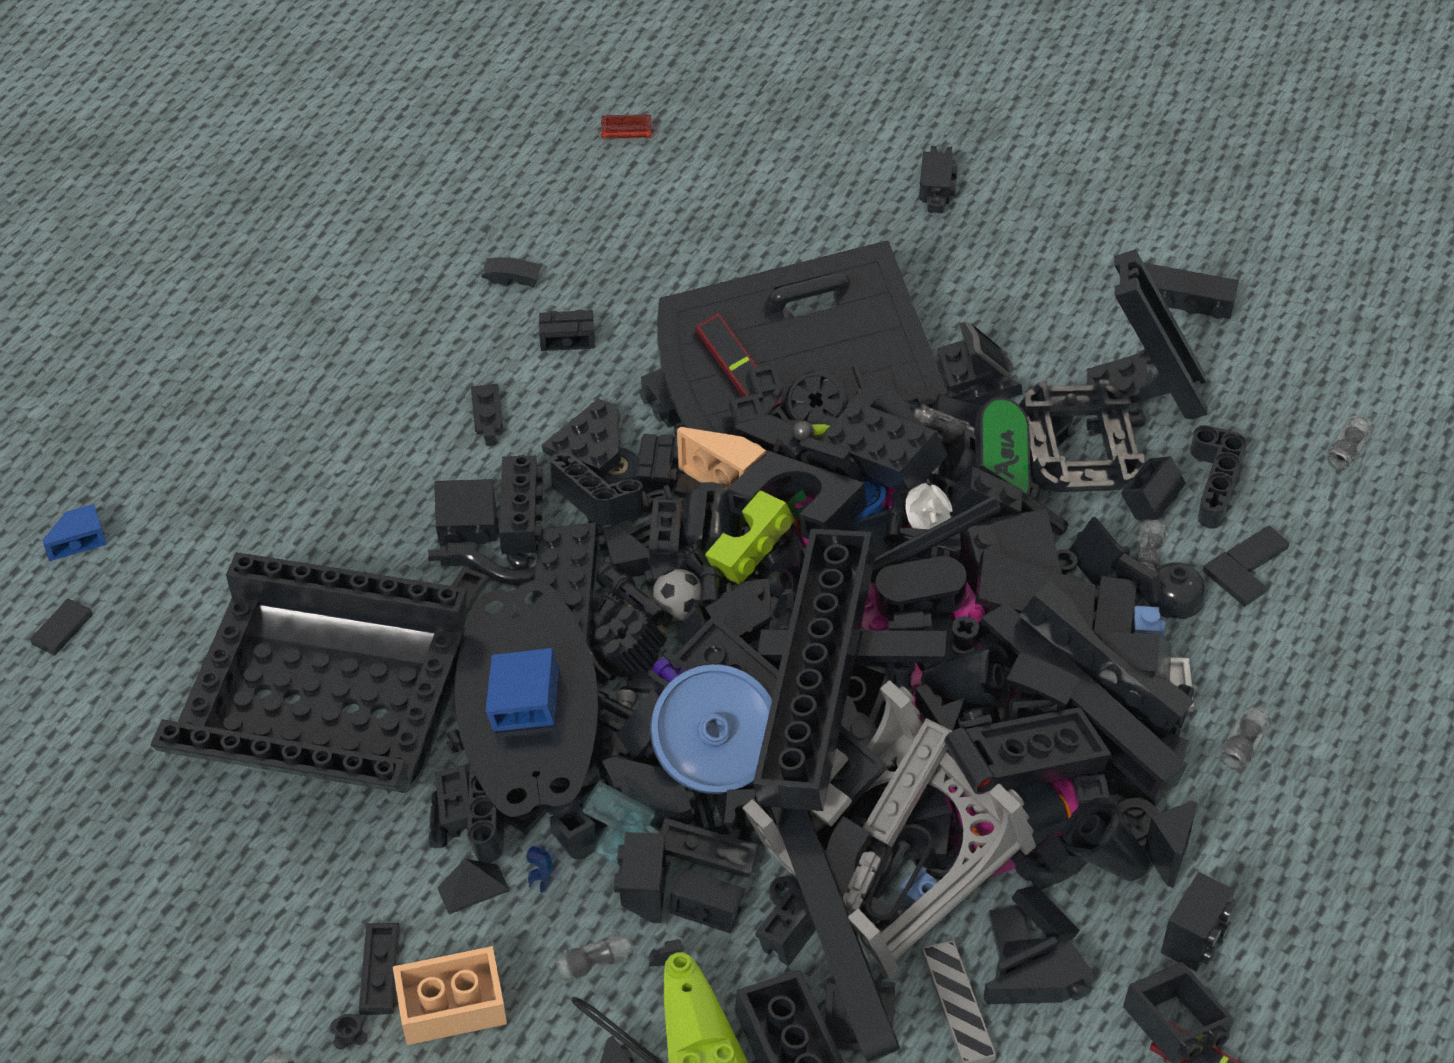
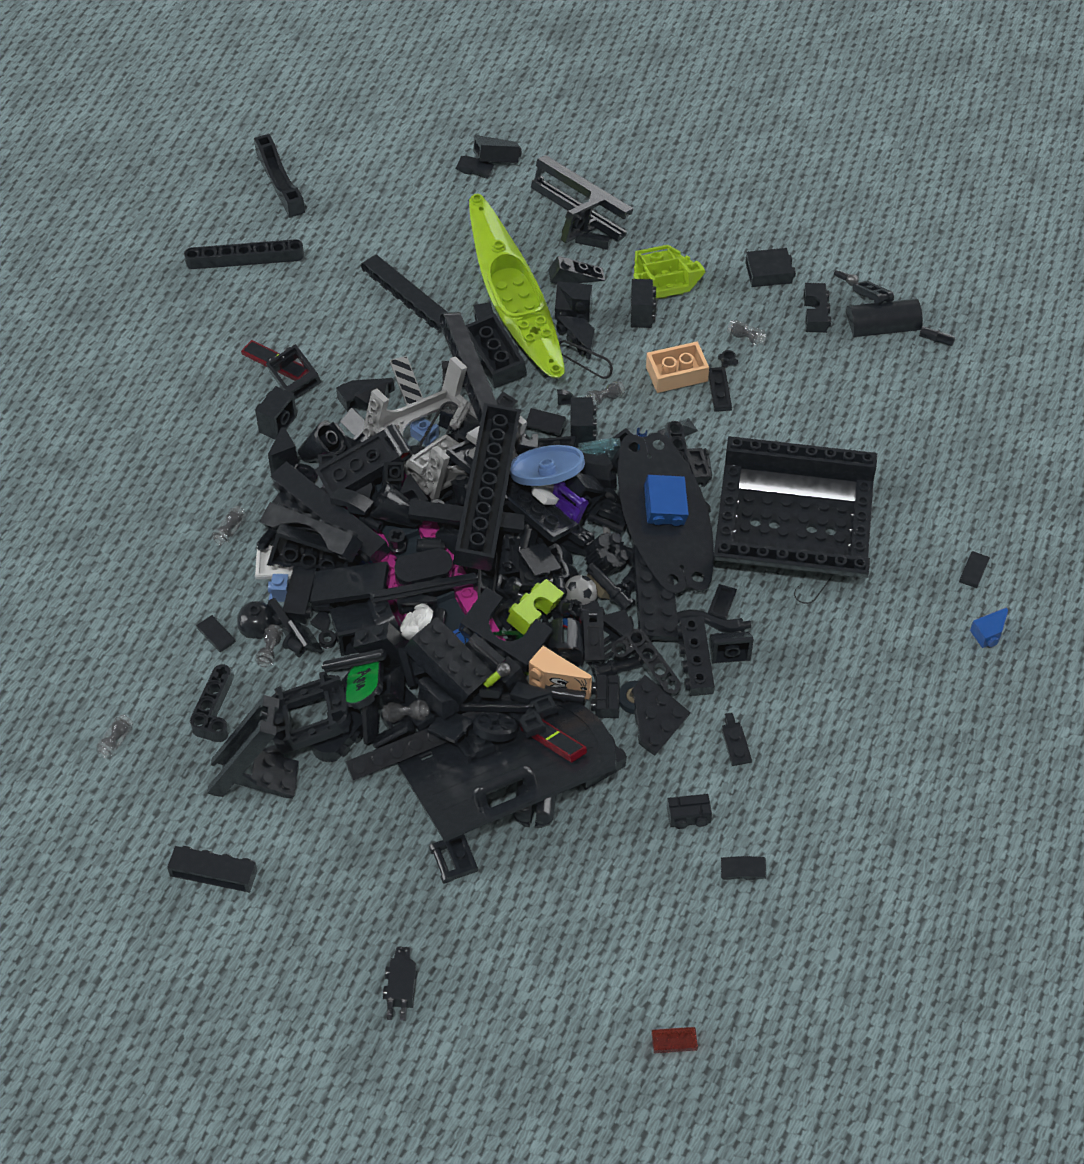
camera: 175 degrees right, 5 degrees up
(973, 360) = (378, 792): black piece -> none
(1153, 488) = (260, 684): black brick -> none
(1258, 548) = (196, 655): black tile -> none

